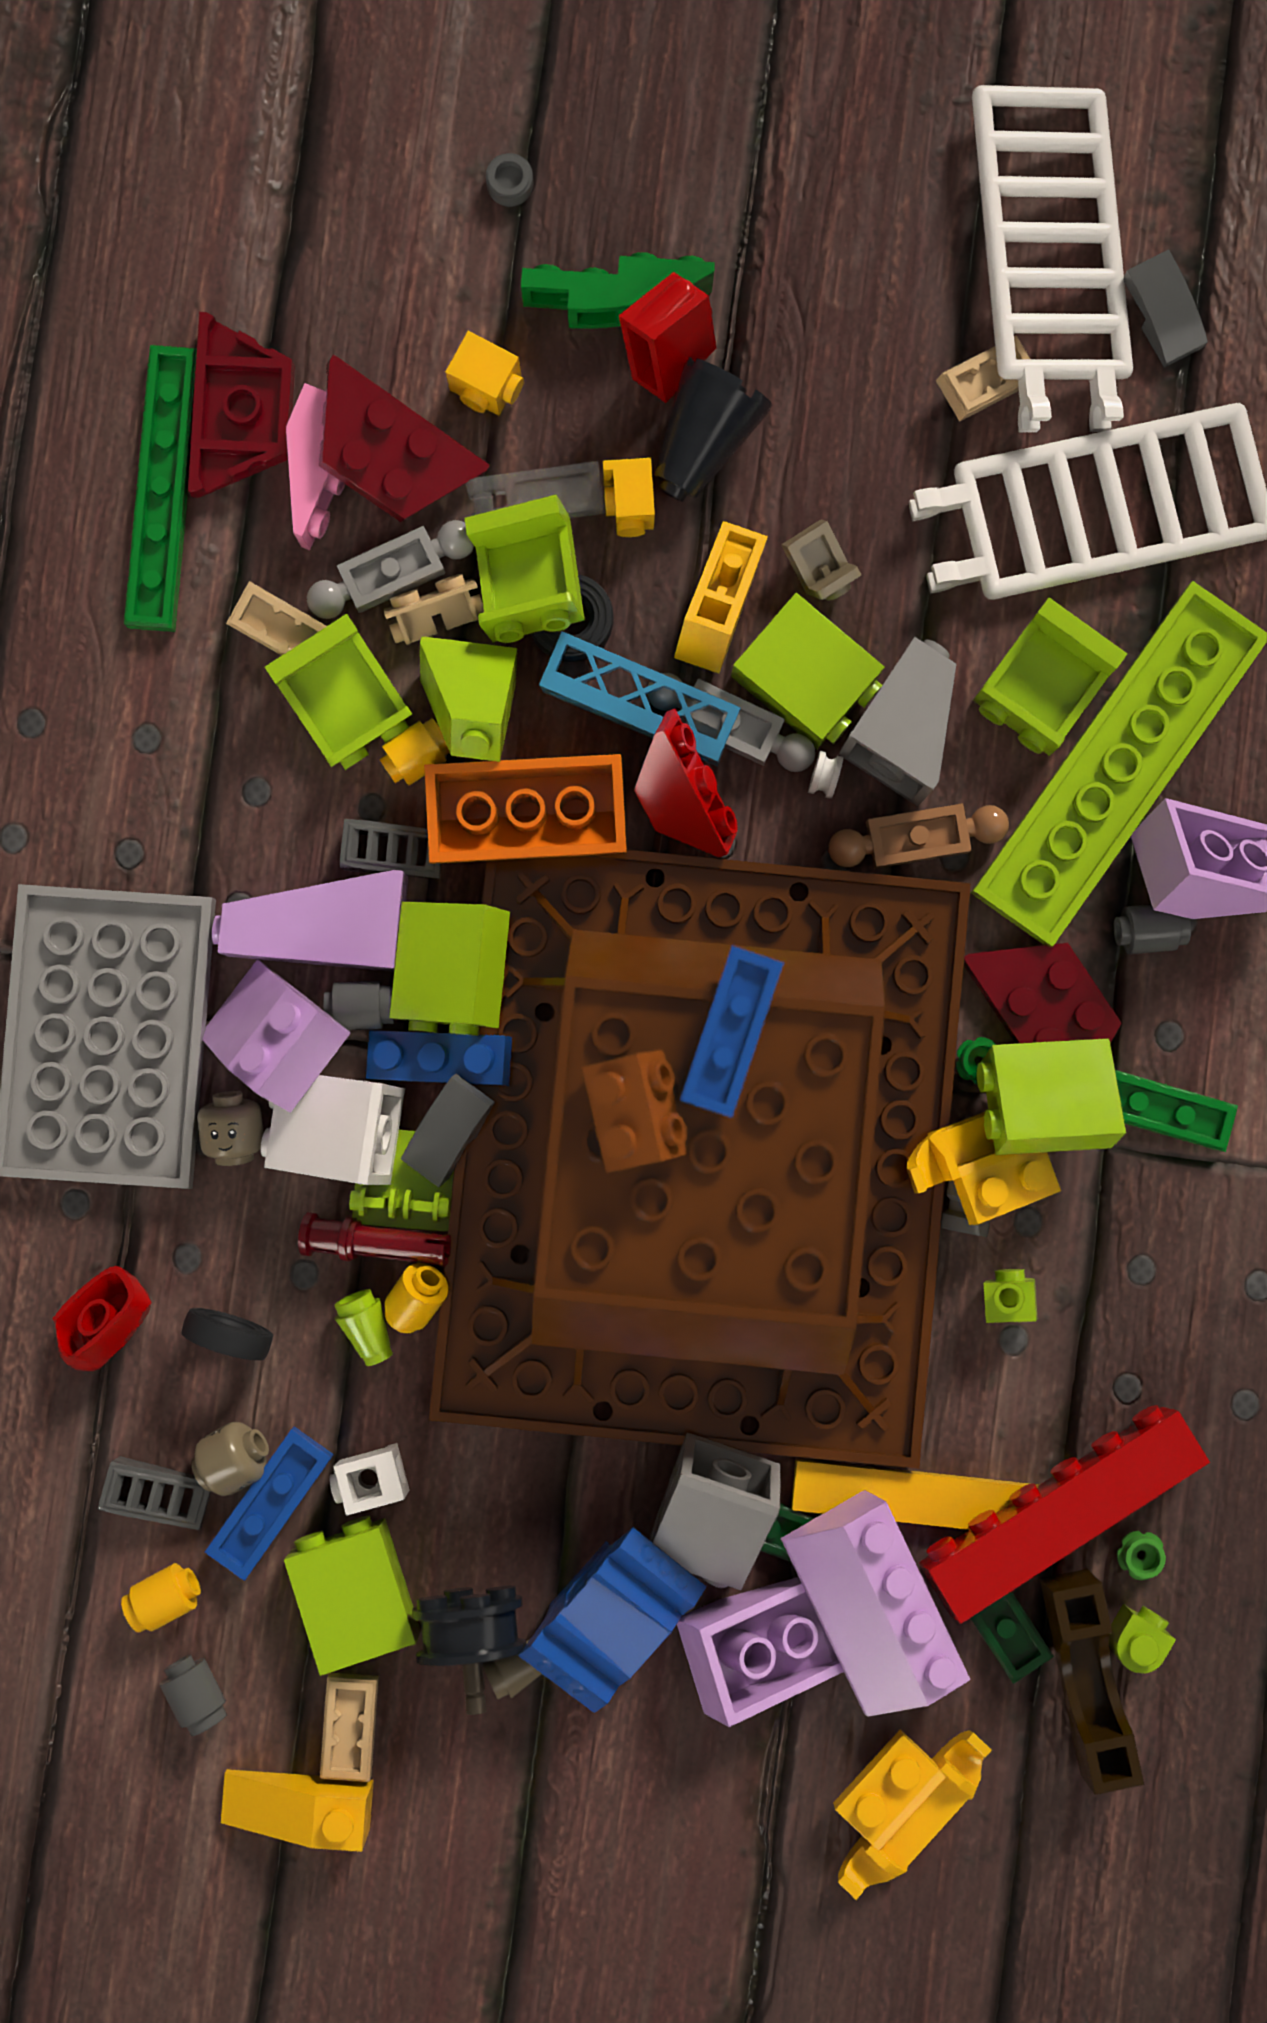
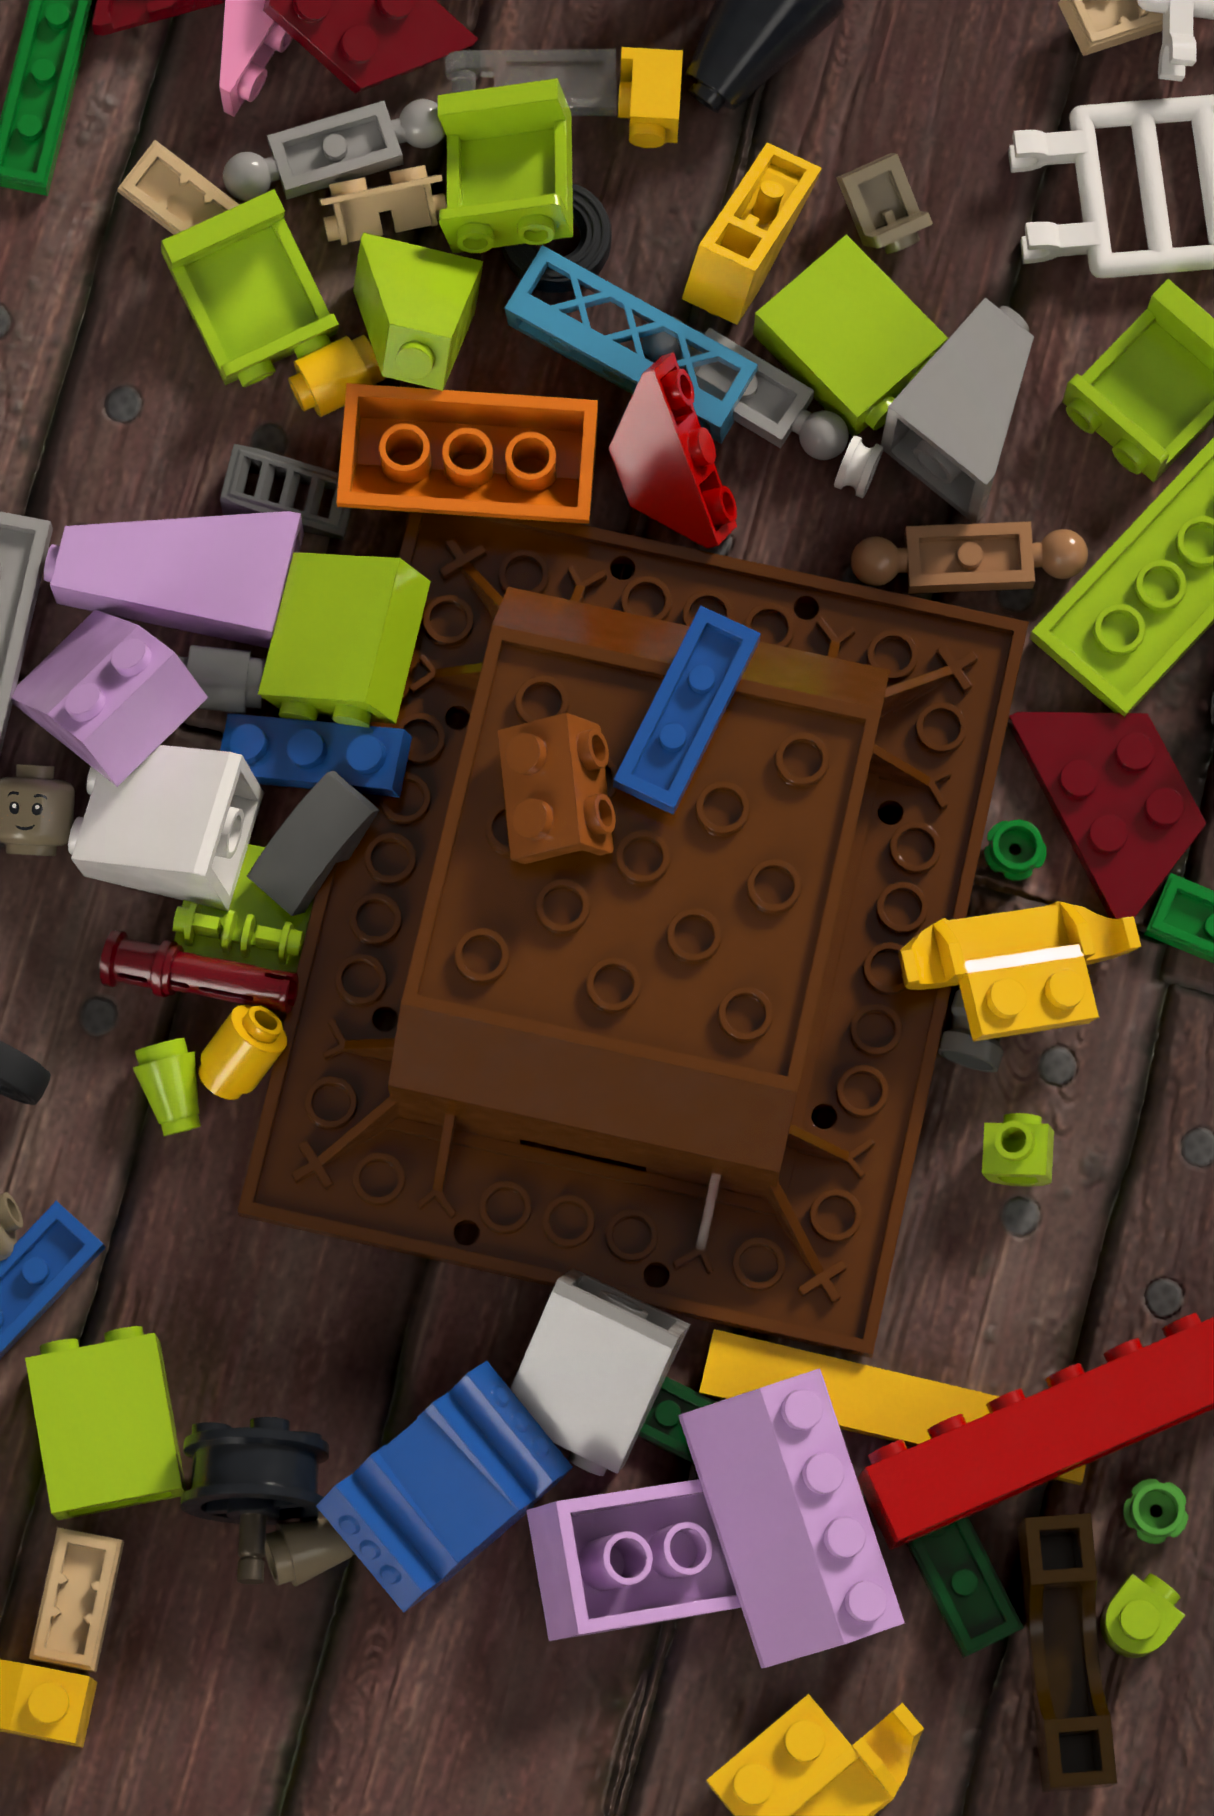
camera: 10 degrees right, 10 degrees down
(357, 1496) = (165, 1258): white brick -> none
(1051, 1097) = (1096, 890): lime brick -> none

